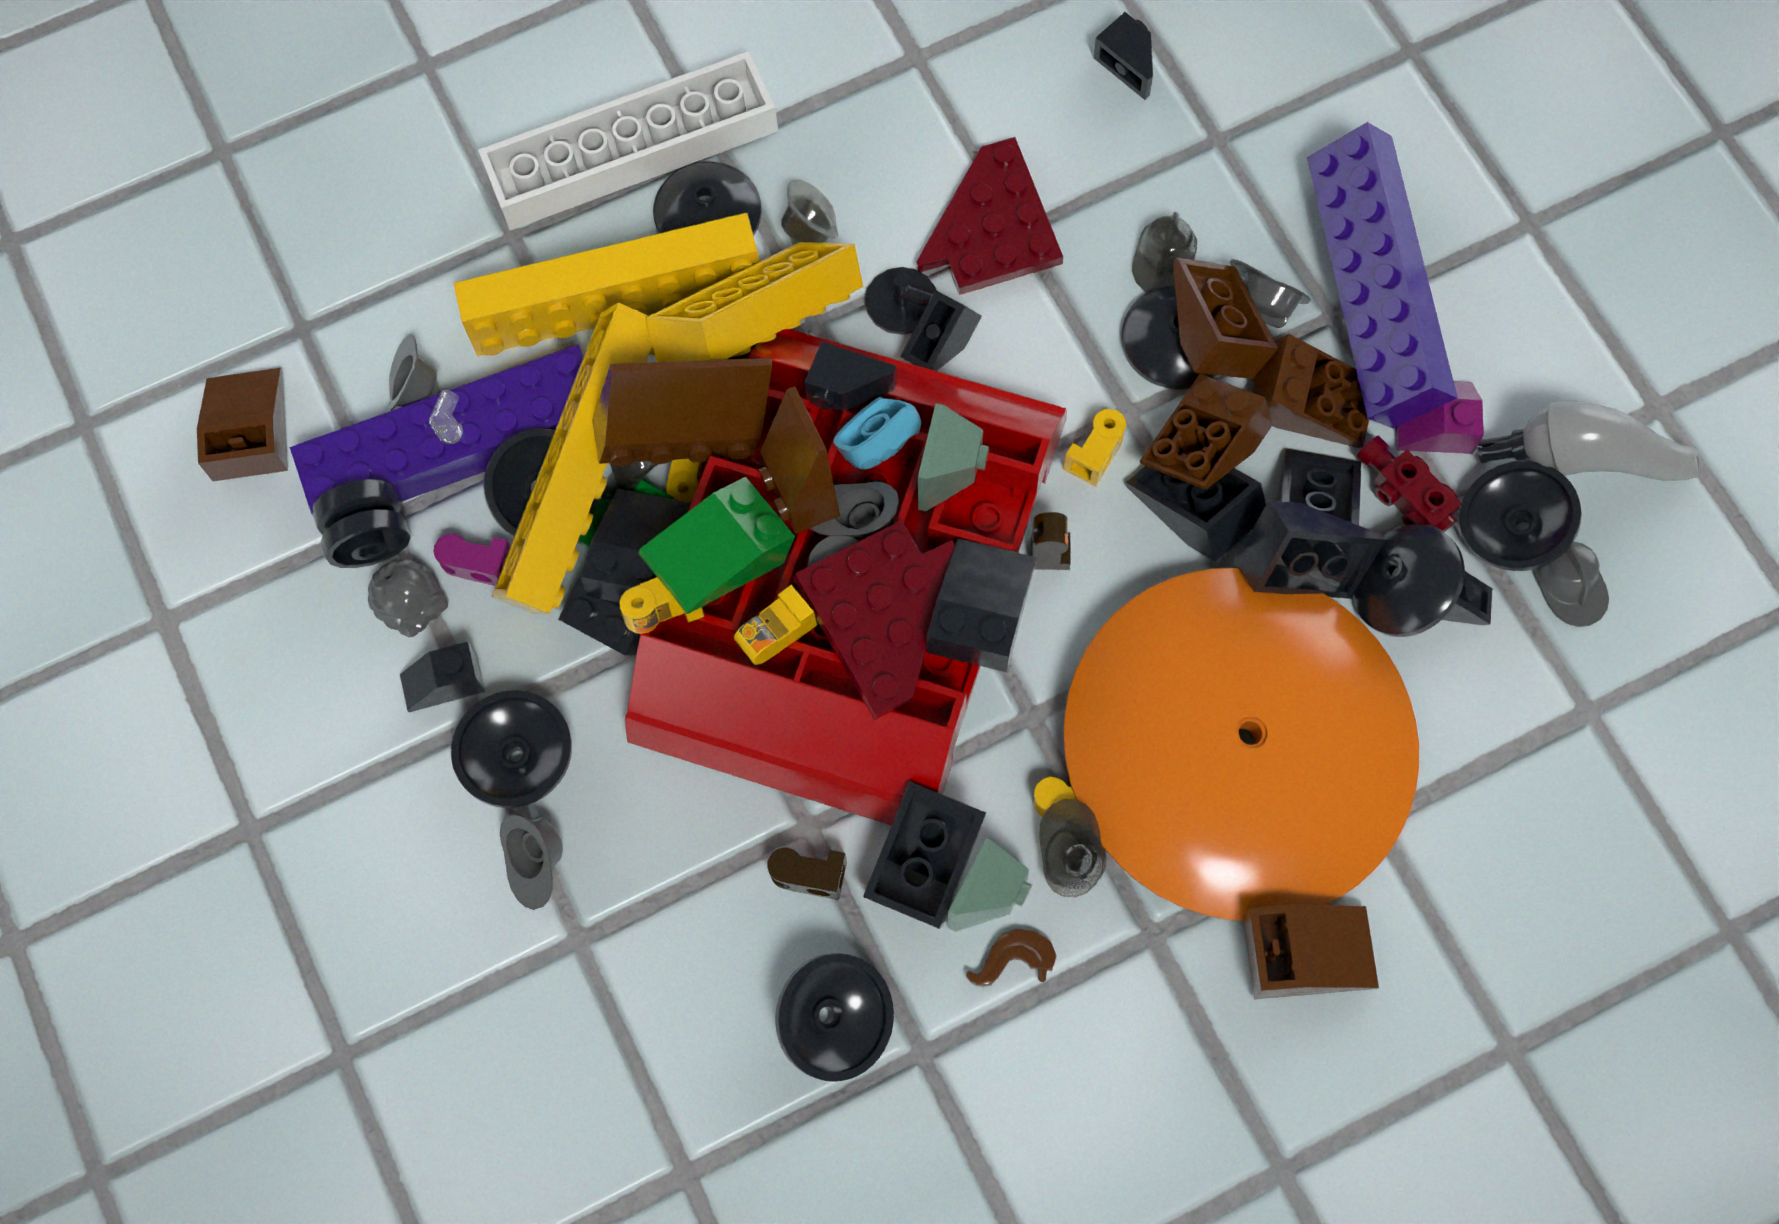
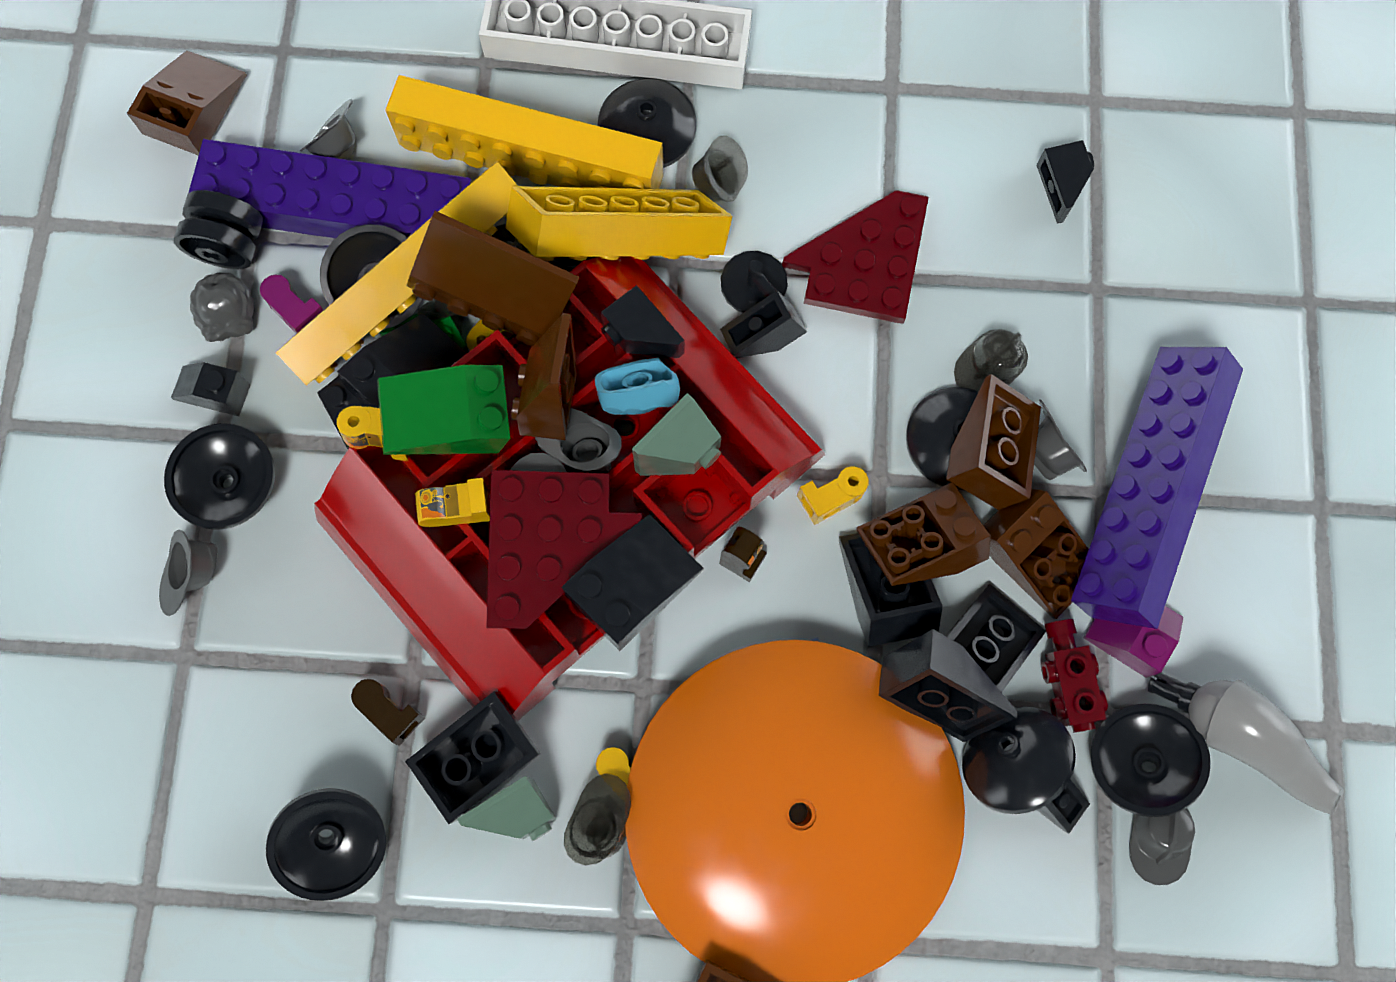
camera: 25 degrees right, 5 degrees up
(442, 419) = (325, 181): clear arm -> none
(1018, 945) = (514, 870): reddish brown piece -> none

